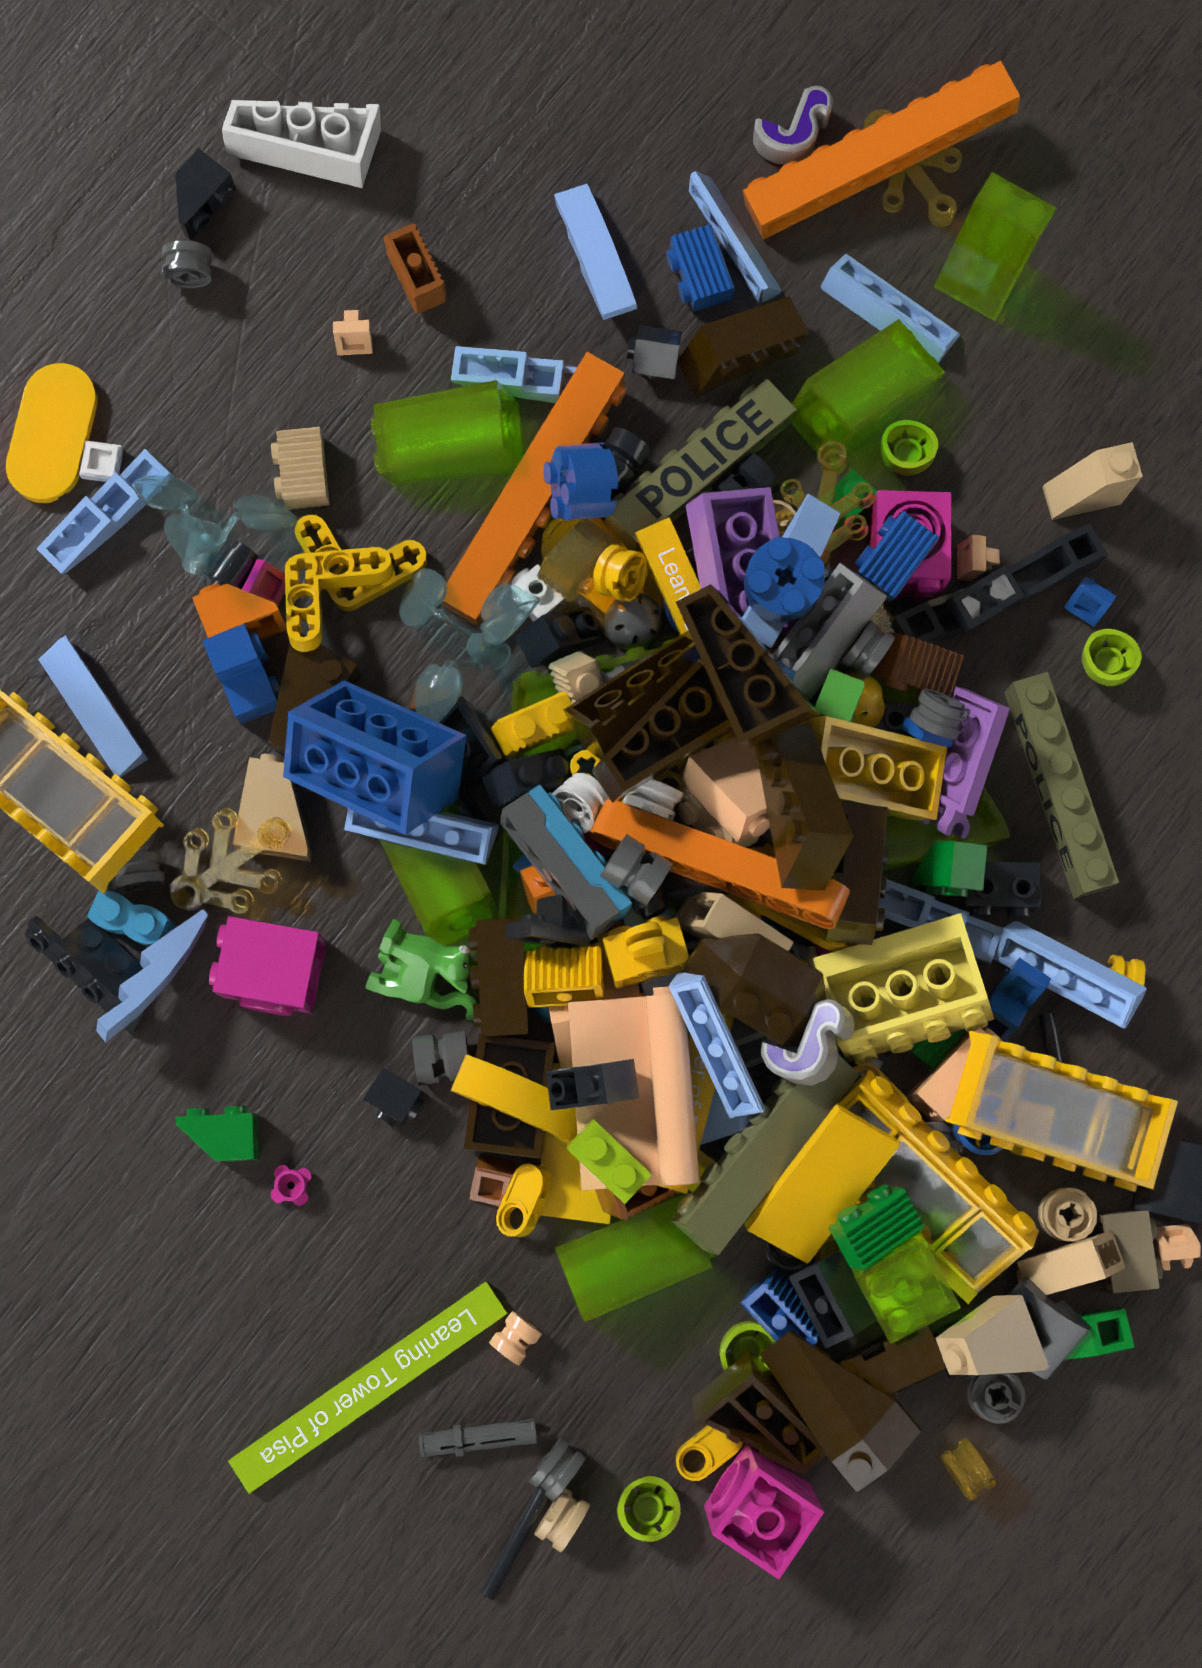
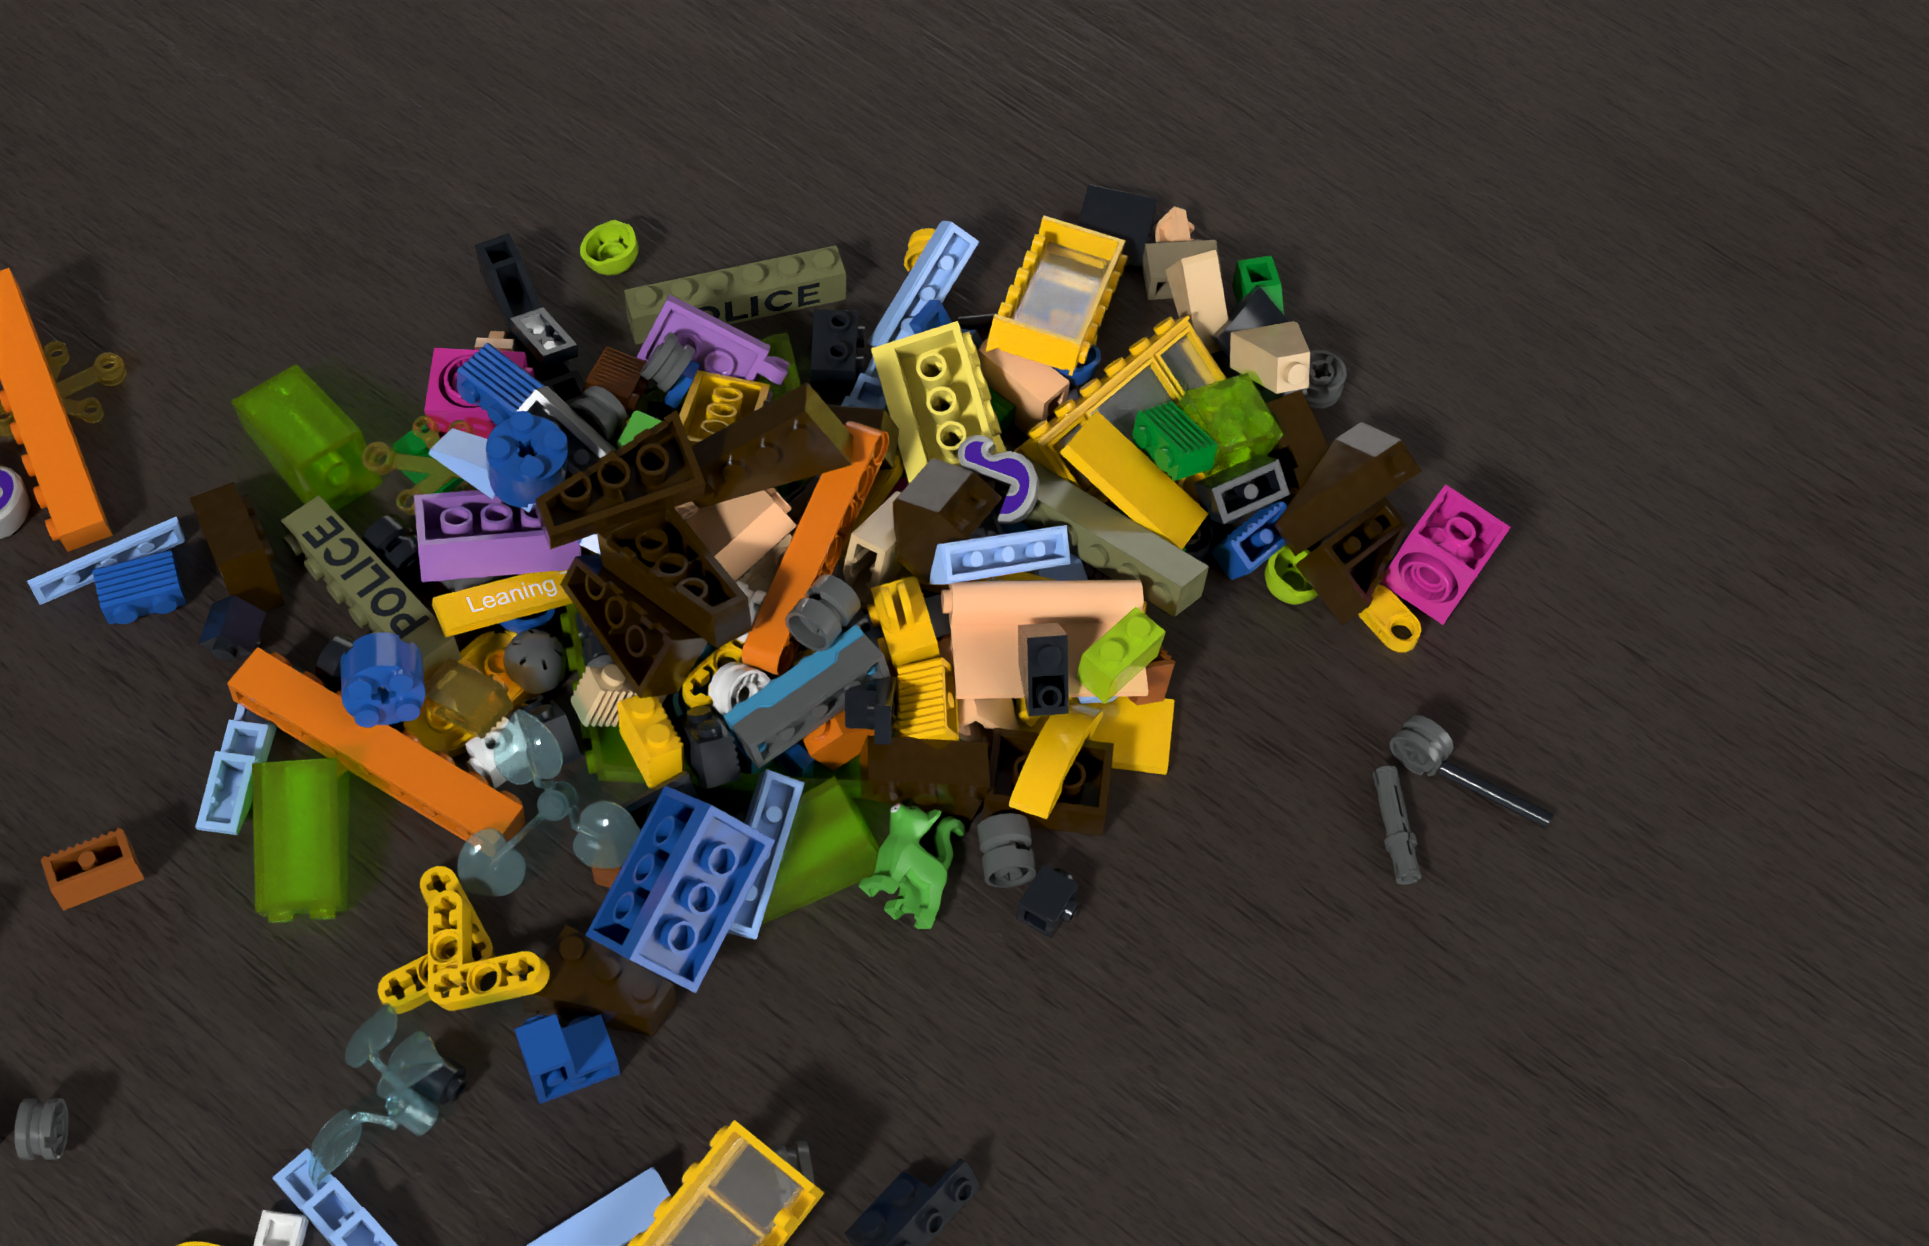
camera: 90 degrees left, 20 degrees down
(125, 918) = (855, 1172): dark azure brick -> none
(159, 966) = (911, 1136): light blue slope -> none
(223, 1136) = (1095, 1075): green slope -> none
(225, 866) = (791, 1071): clear yellow plant -> none
(230, 607) = (496, 1062): orange slope -> none
(266, 582) = (458, 1037): plate -> none
(268, 796) = (728, 1028): tan slope -> none
(268, 966) = (908, 1018): dark pink brick -> none
(283, 1193) = (1145, 998): dark pink plate -> none
(301, 468) = (319, 998): tan brick -> none
(352, 335) = (161, 942): light nougat tile -> none
(367, 1387) = (1355, 935): lime tile -> none
(491, 1179) = (1133, 810): dark orange slope -> none
(515, 1338) = (1296, 787): light nougat wheel -> none
(529, 1193) = (1146, 773): yellow piece -> none
(562, 1520) = (1473, 741): tan wheel -> none
(595, 252) = (107, 685): light blue slope -> none
(620, 573) = (487, 653): yellow wheel -> none
(629, 1260) = (1216, 678): clear neon green slope -> none
(648, 1509) = (1450, 674): lime helmet -> none
(883, 304) = (205, 428): light blue slope -> none
(907, 454) = (374, 412): lime helmet -> none
(952, 868) = (821, 366): green slope -> none
(967, 1469) = (1390, 399): clear yellow wheel -> none
(994, 246) = (169, 303): clear neon green slope -> none
(1083, 1214) = (1149, 300): tan wheel -> none
(1090, 601) = (550, 262): blue tile -> none
(1094, 482) = (431, 243): tan slope -> none

